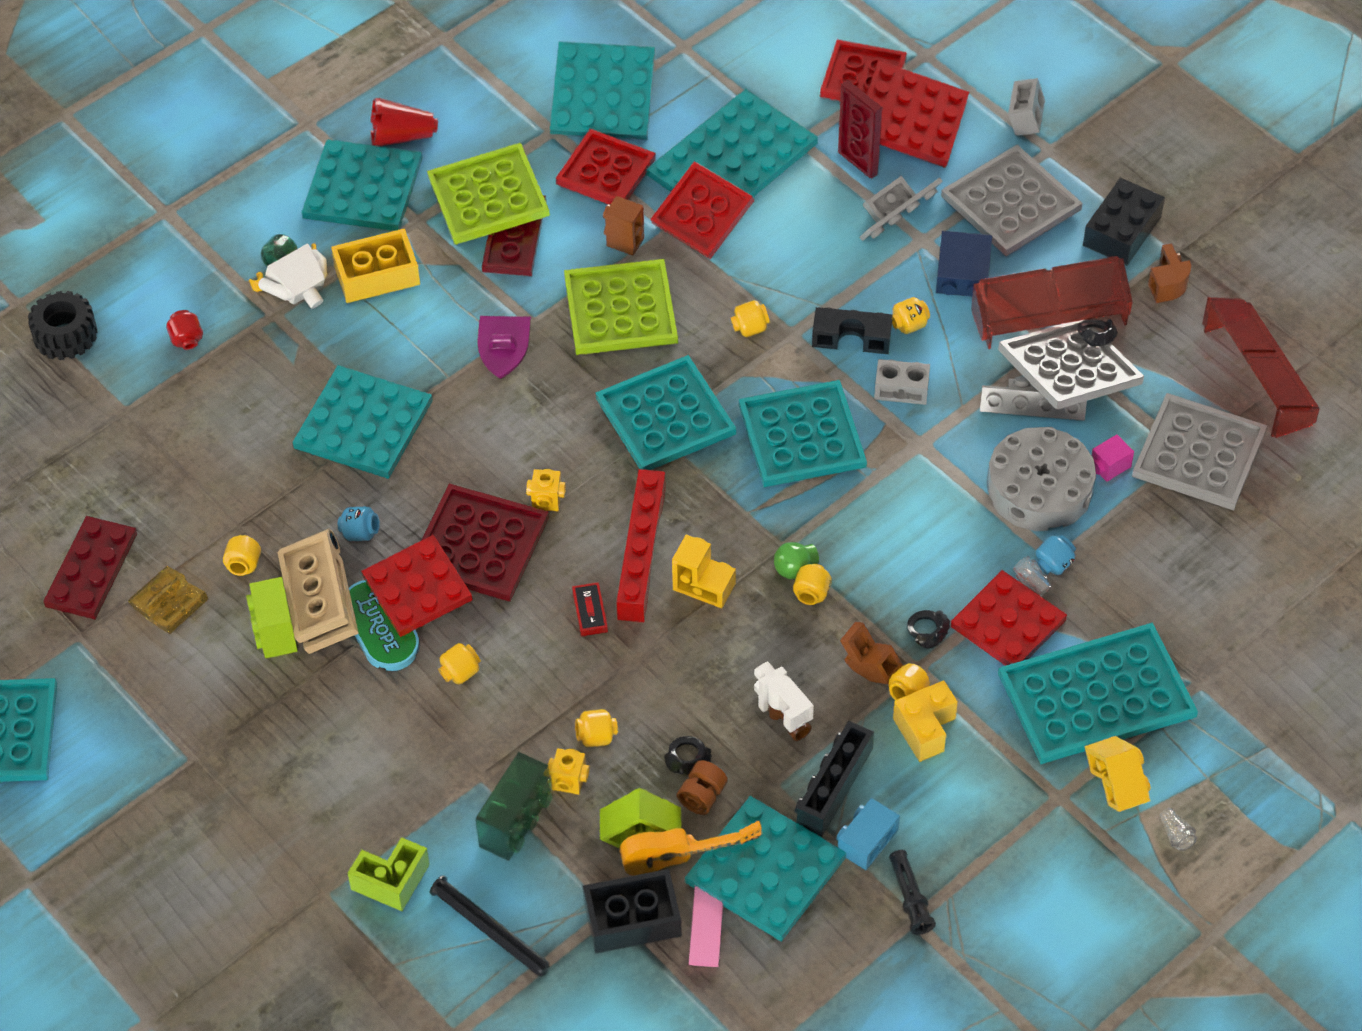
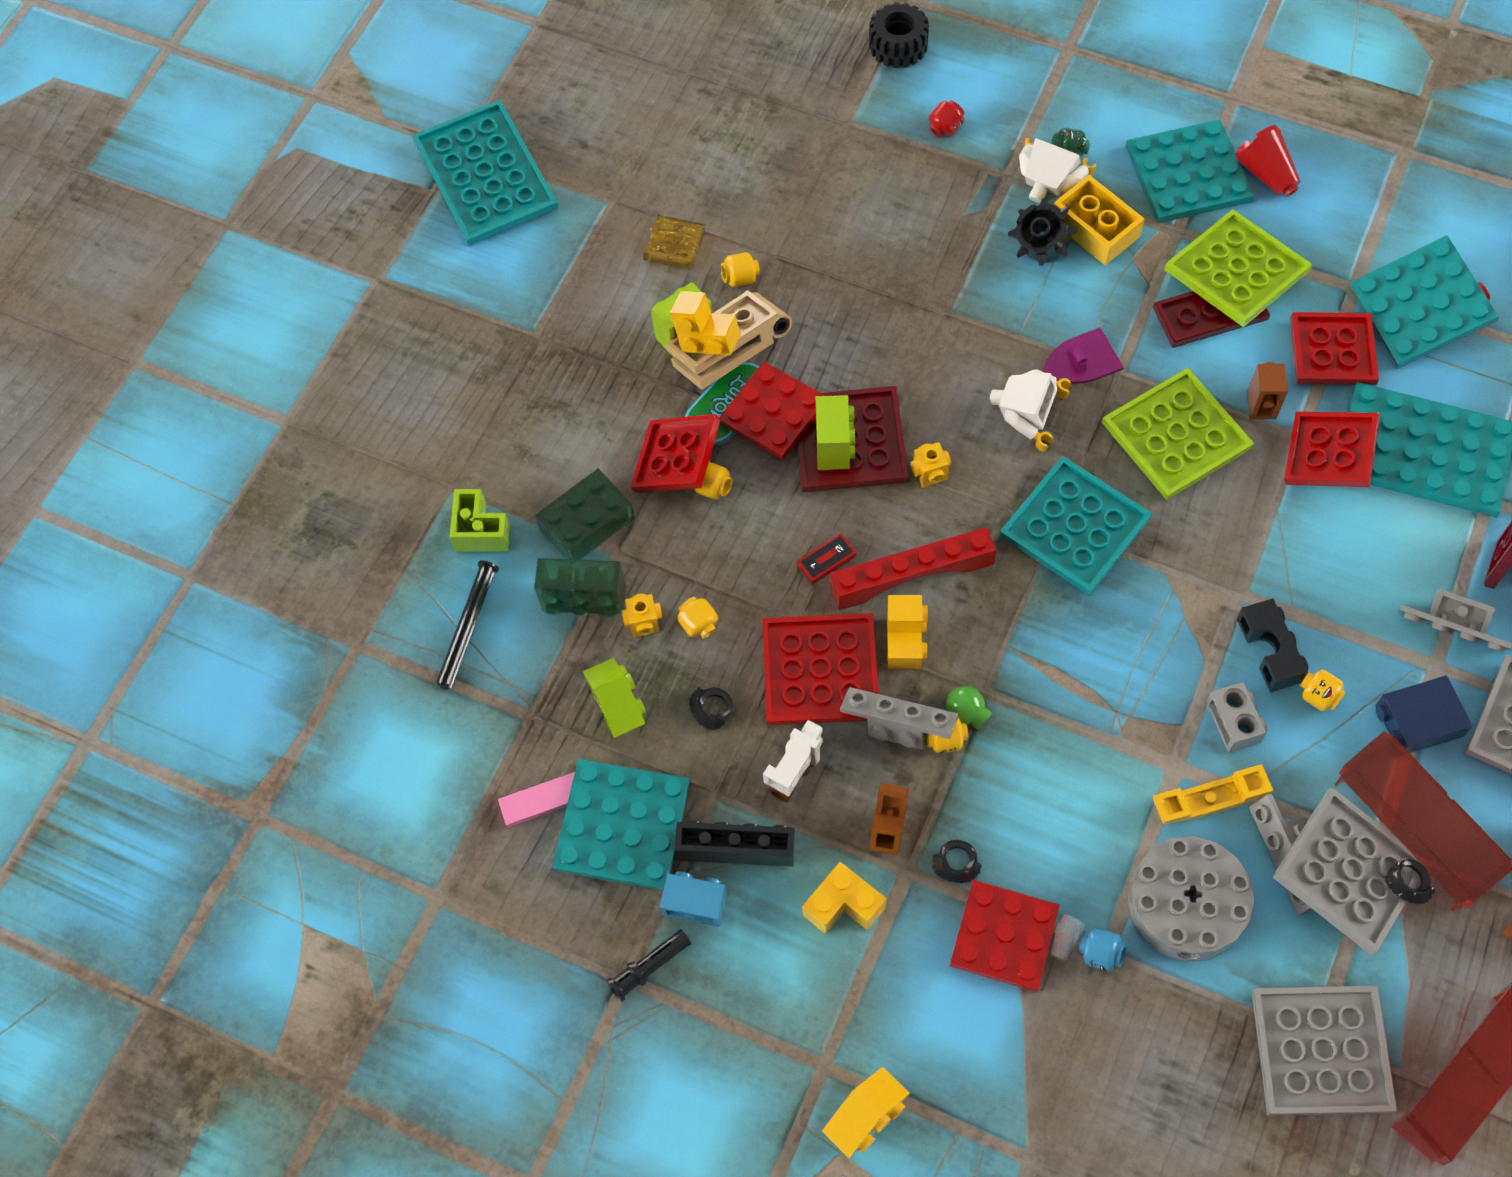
camera: 70 degrees right, 10 degrees up
(90, 567) = (679, 175): dark red plate -> none
(315, 590) = (700, 329): none -> yellow brick
(358, 523) = (817, 338): dark azure head -> none
(362, 421) = (931, 293): teal plate -> none
(364, 292) = (1044, 219): none -> black brick
(416, 678) = (675, 453): none -> red plate
(435, 781) = (585, 516): none -> clear green brick
(480, 539) = (834, 432): none -> lime brick
(530, 394) = (1028, 402): none -> white torso
(632, 911) = (520, 729): black brick -> none
(657, 850) = (600, 739): light orange piece -> none
(697, 654) = (814, 664): none -> red plate
(702, 786) = (685, 732): dark orange wheel -> none
(750, 318) = (1229, 548): yellow head -> none
(783, 609) = (898, 719): none -> light grey bracket
(802, 433) = (1121, 652): teal plate -> none
(907, 680) = (878, 868): yellow head -> none
(961, 424) = (1214, 796): none -> yellow slope
(1097, 692) = (959, 1057): teal plate -> none
(1112, 458) = (1258, 959): dark pink brick -> none

